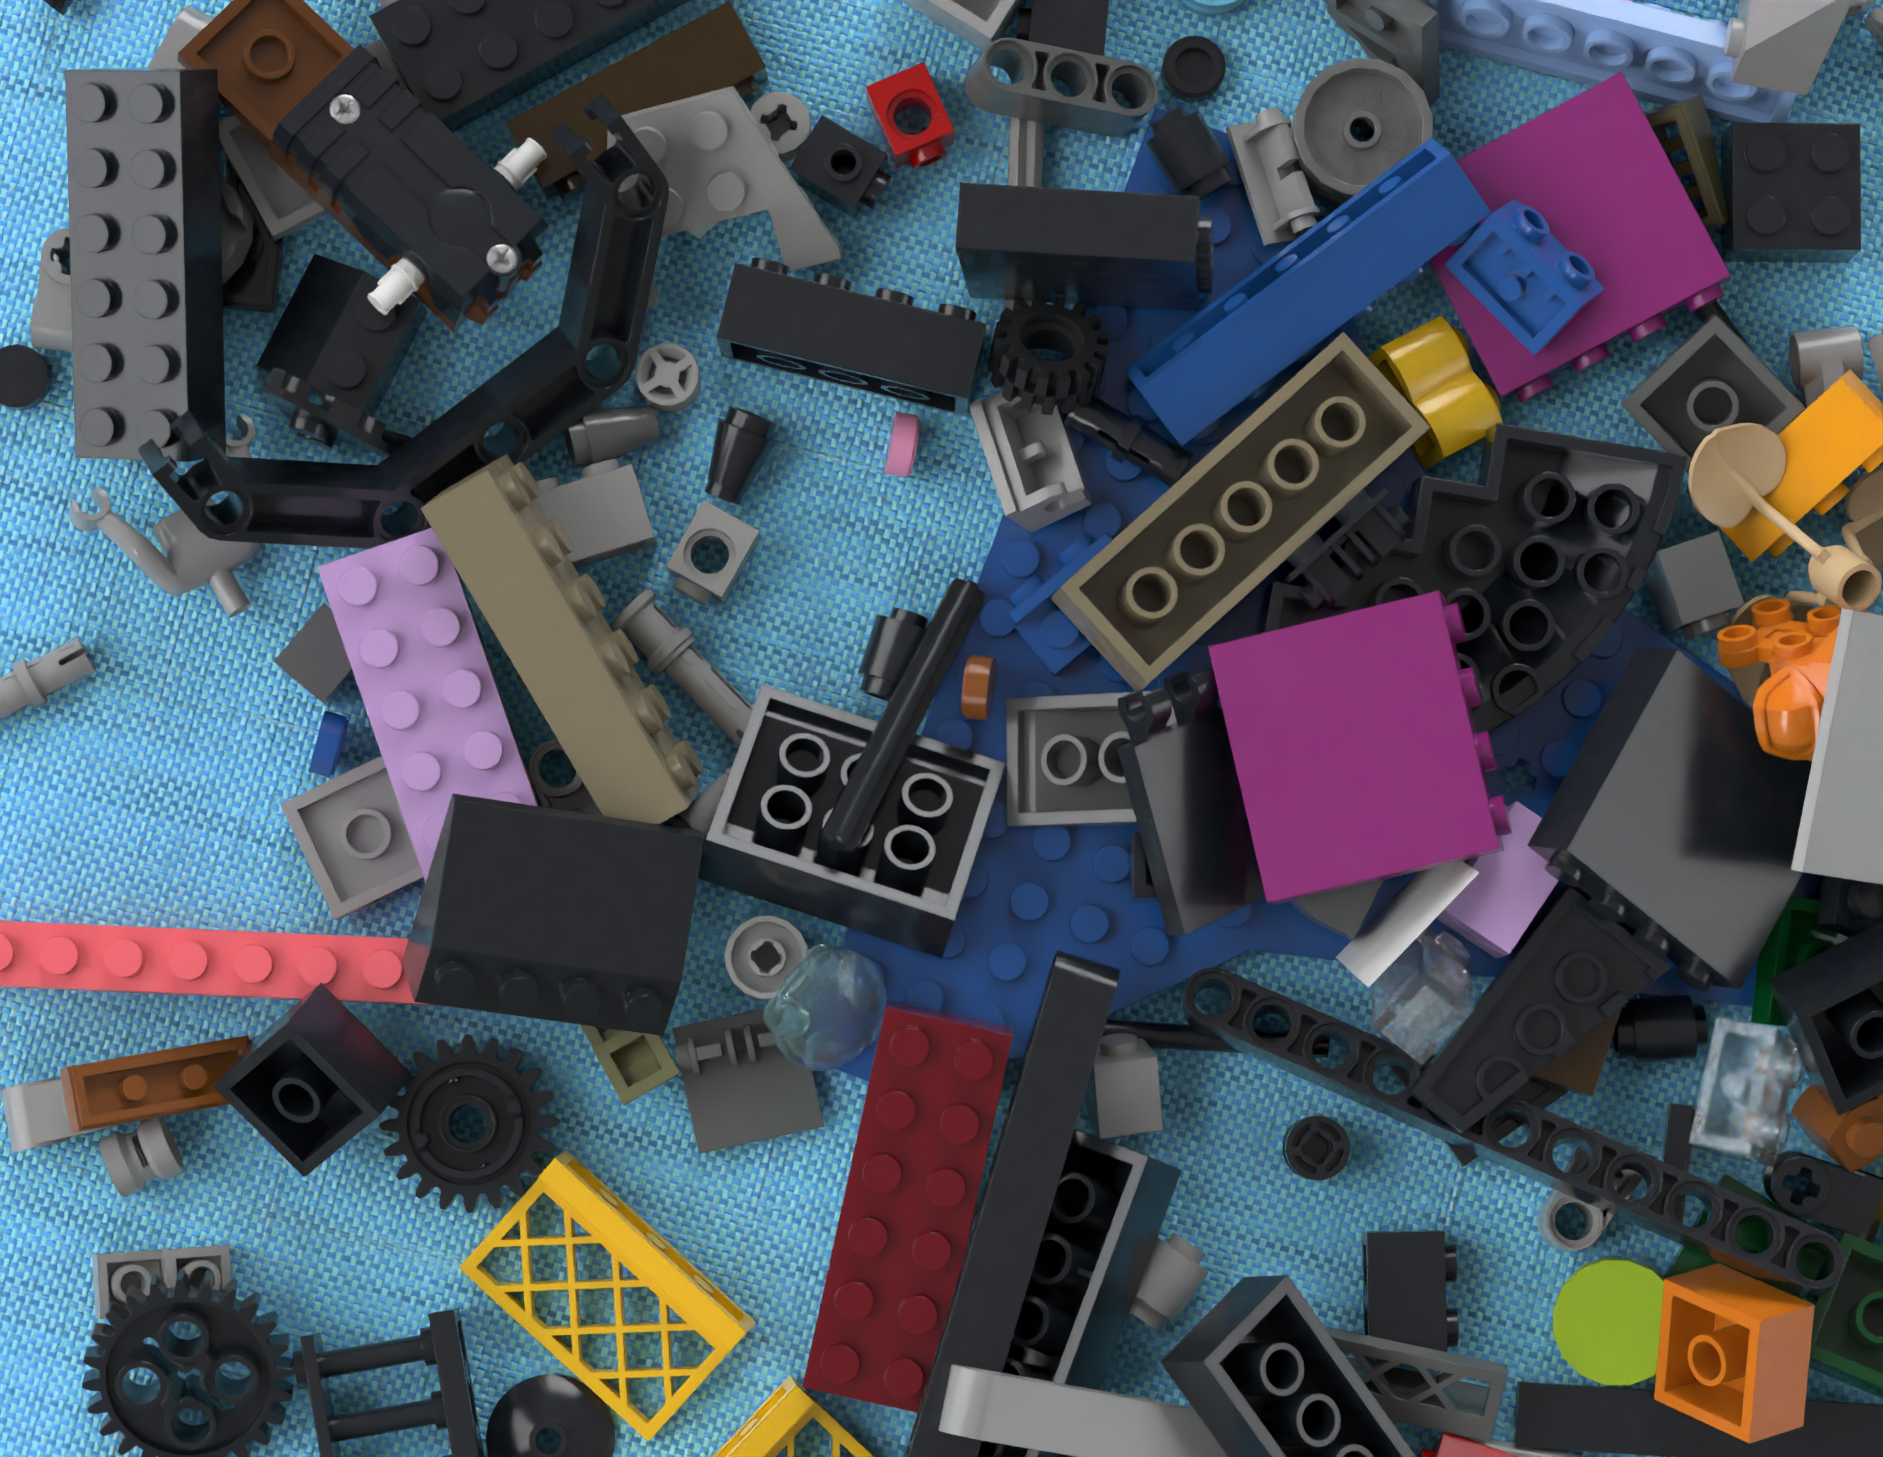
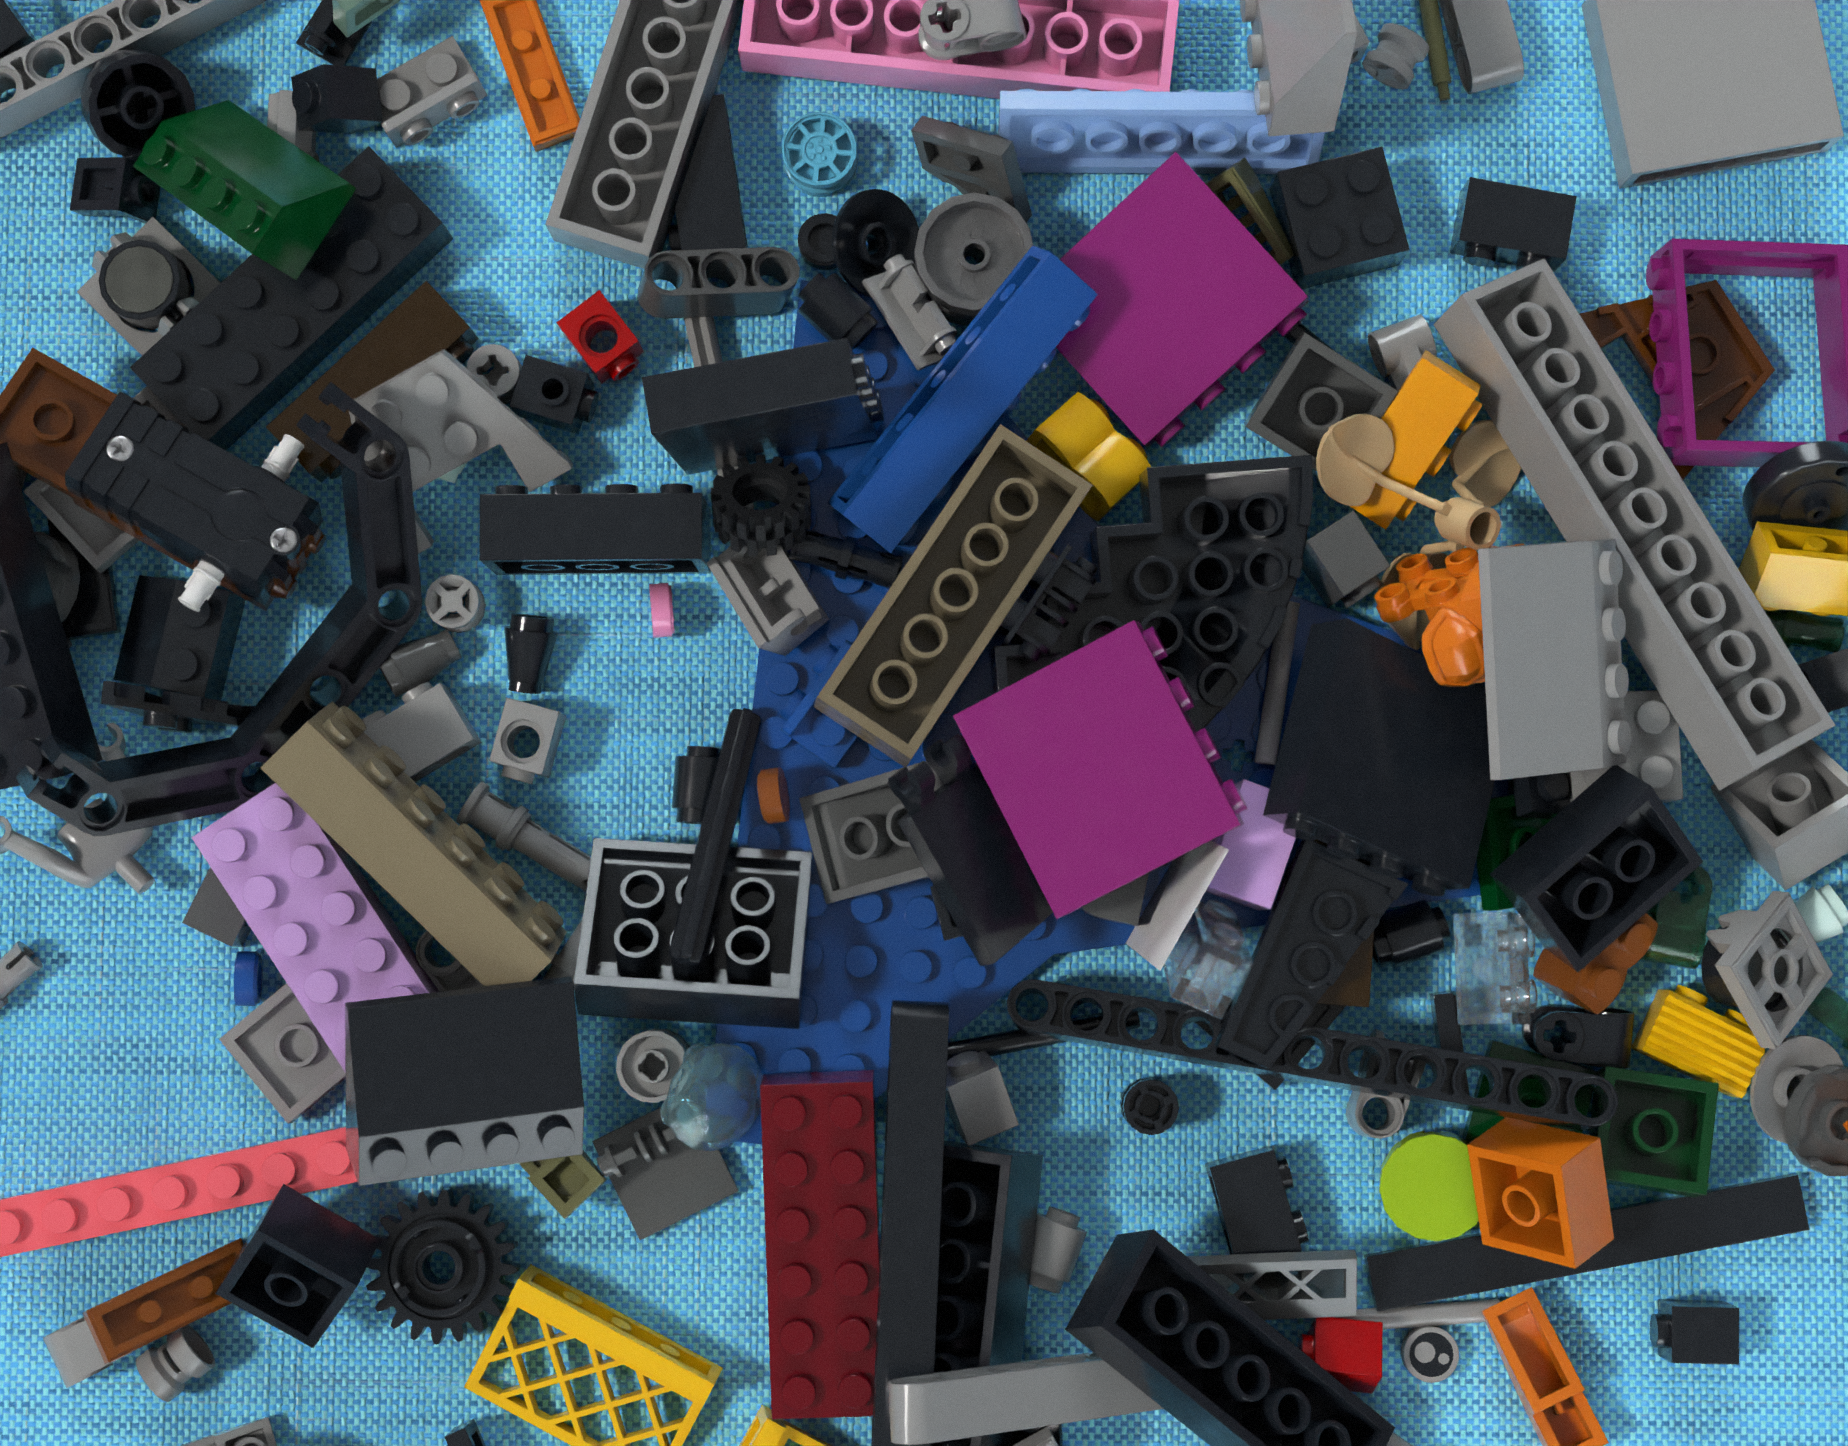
camera: 10 degrees left, 0 degrees up
(1265, 66) = (886, 226): none -> black dish
(1524, 275) = (1138, 339): blue bracket -> none
(1582, 708) = (1276, 688): none -> light grey bar

